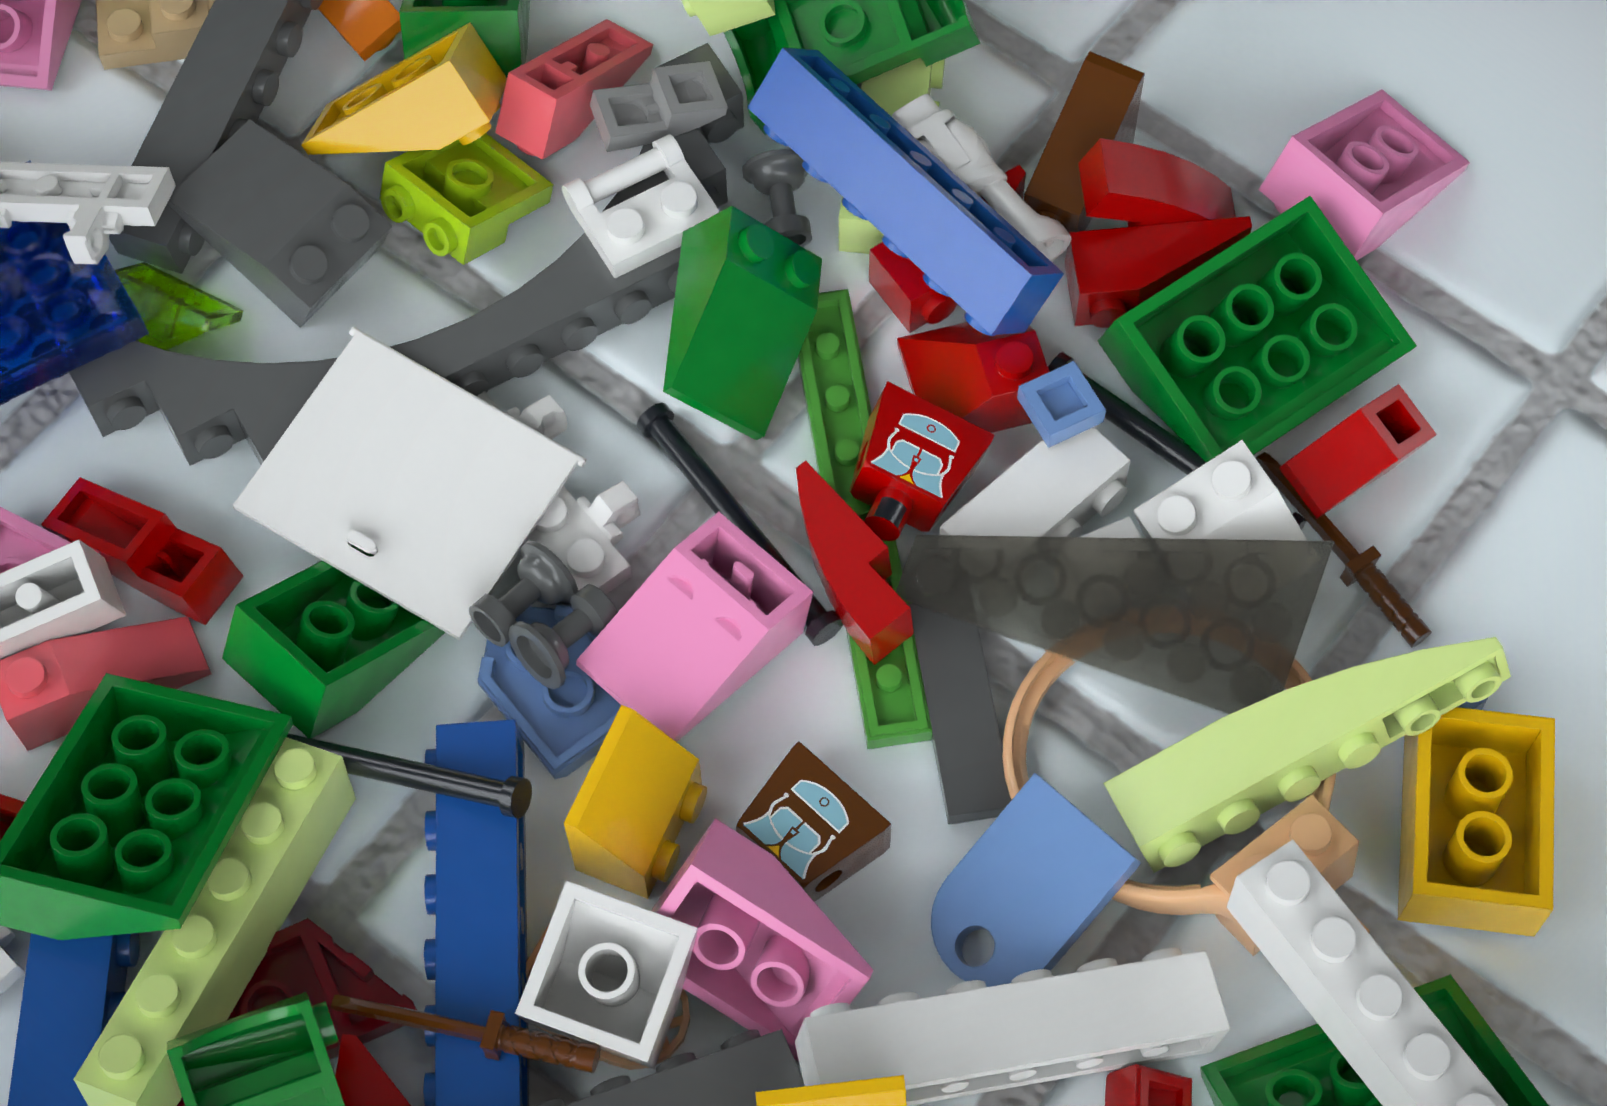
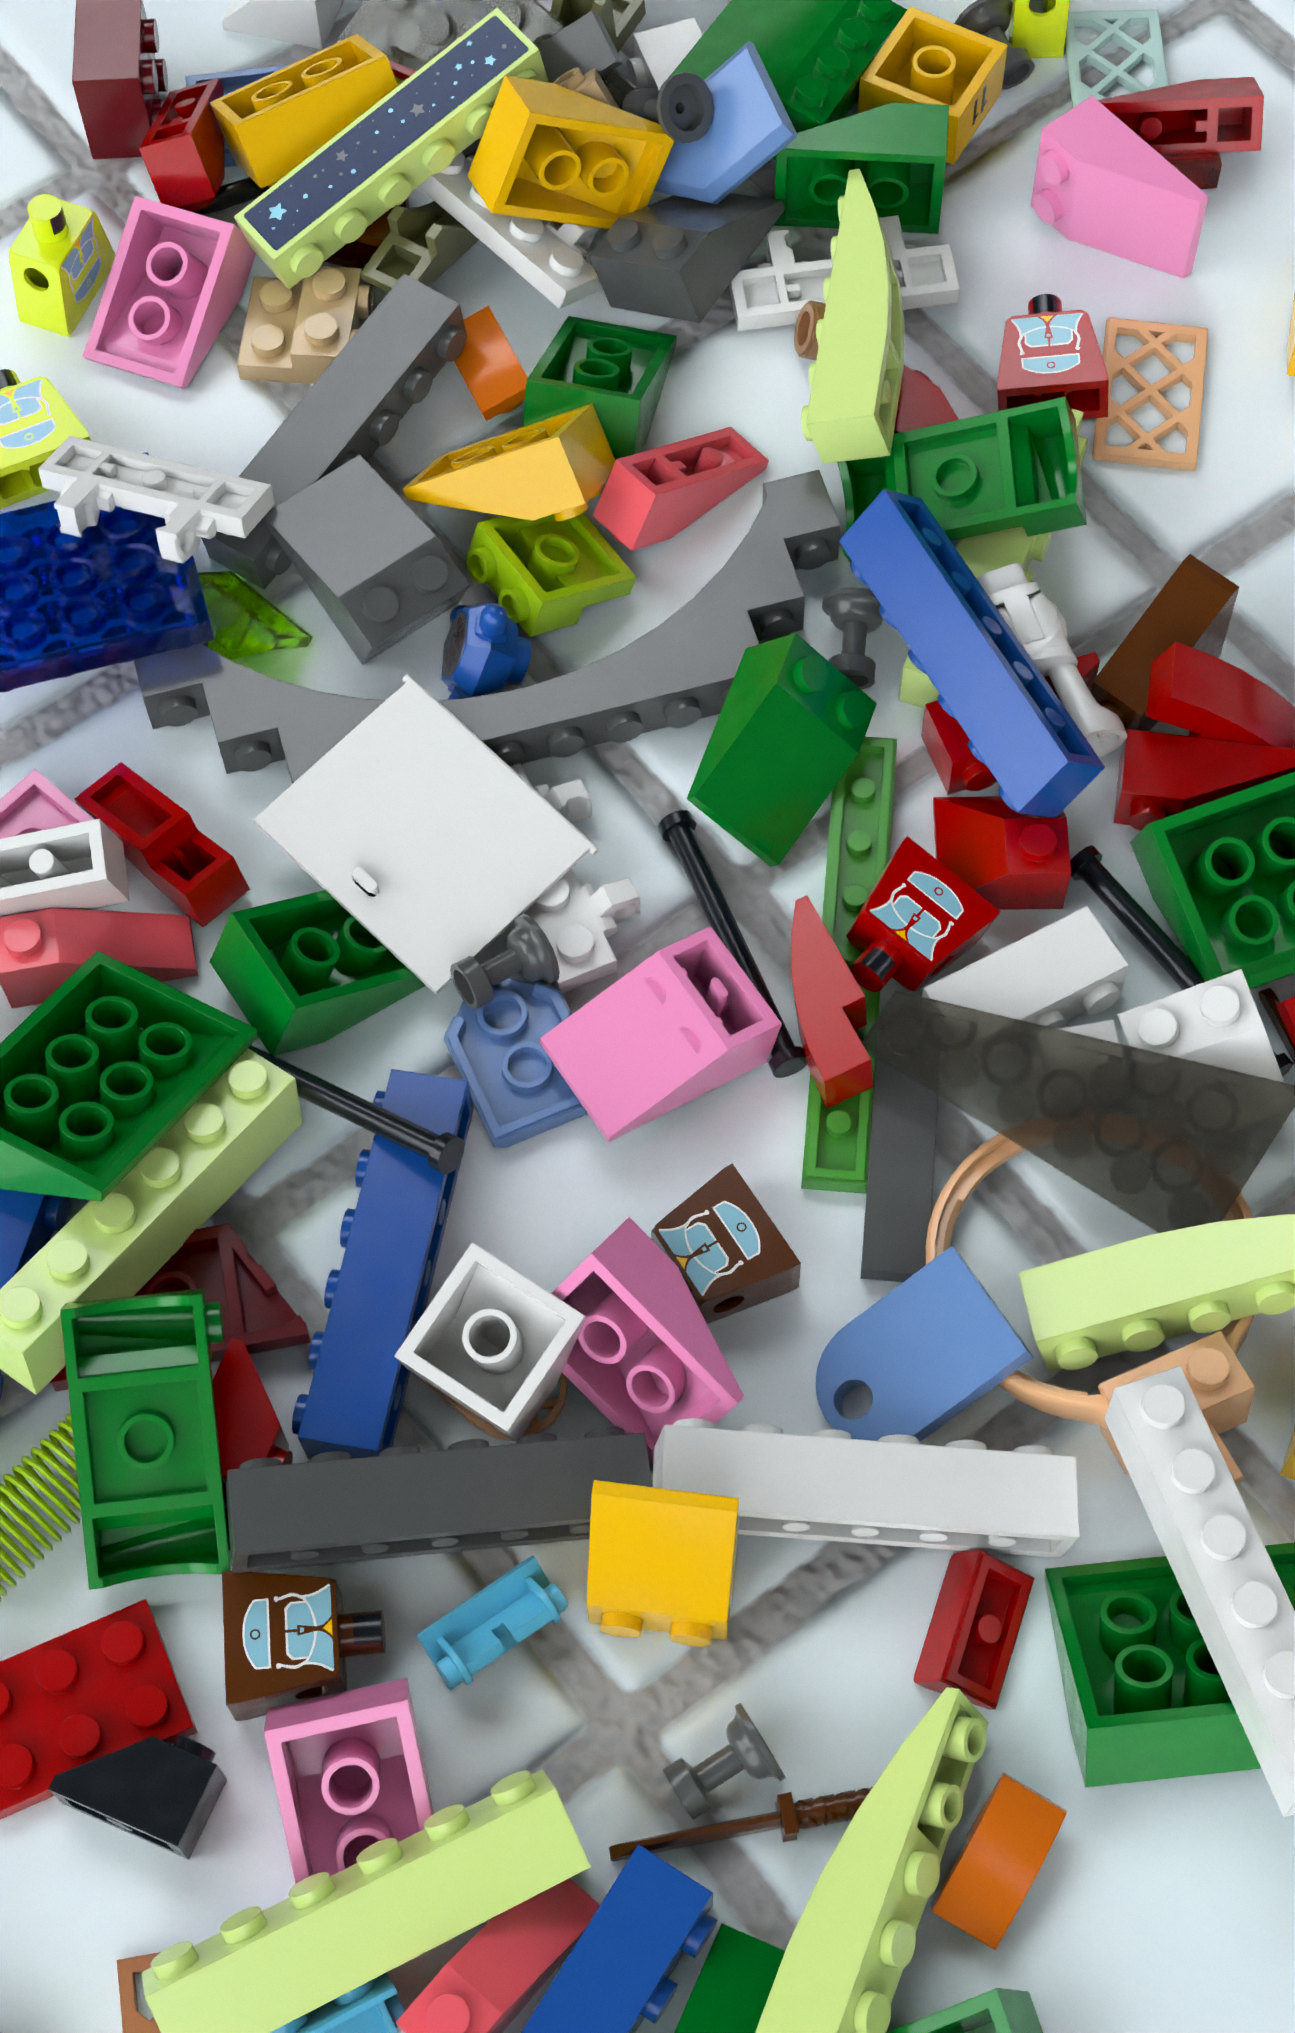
camera: 15 degrees right, 0 degrees up
(420, 288) = (483, 651): none -> blue rock
(494, 1037) = (369, 1374): reddish brown sword -> none
(544, 648) = (513, 1020): dark grey piece -> none
(634, 806) = (559, 1188): yellow slope -> none
(648, 222) = (715, 632): white plate -> none
(672, 104) = (767, 523): light grey slope -> none
(1061, 404) = (1072, 895): medium blue plate -> none

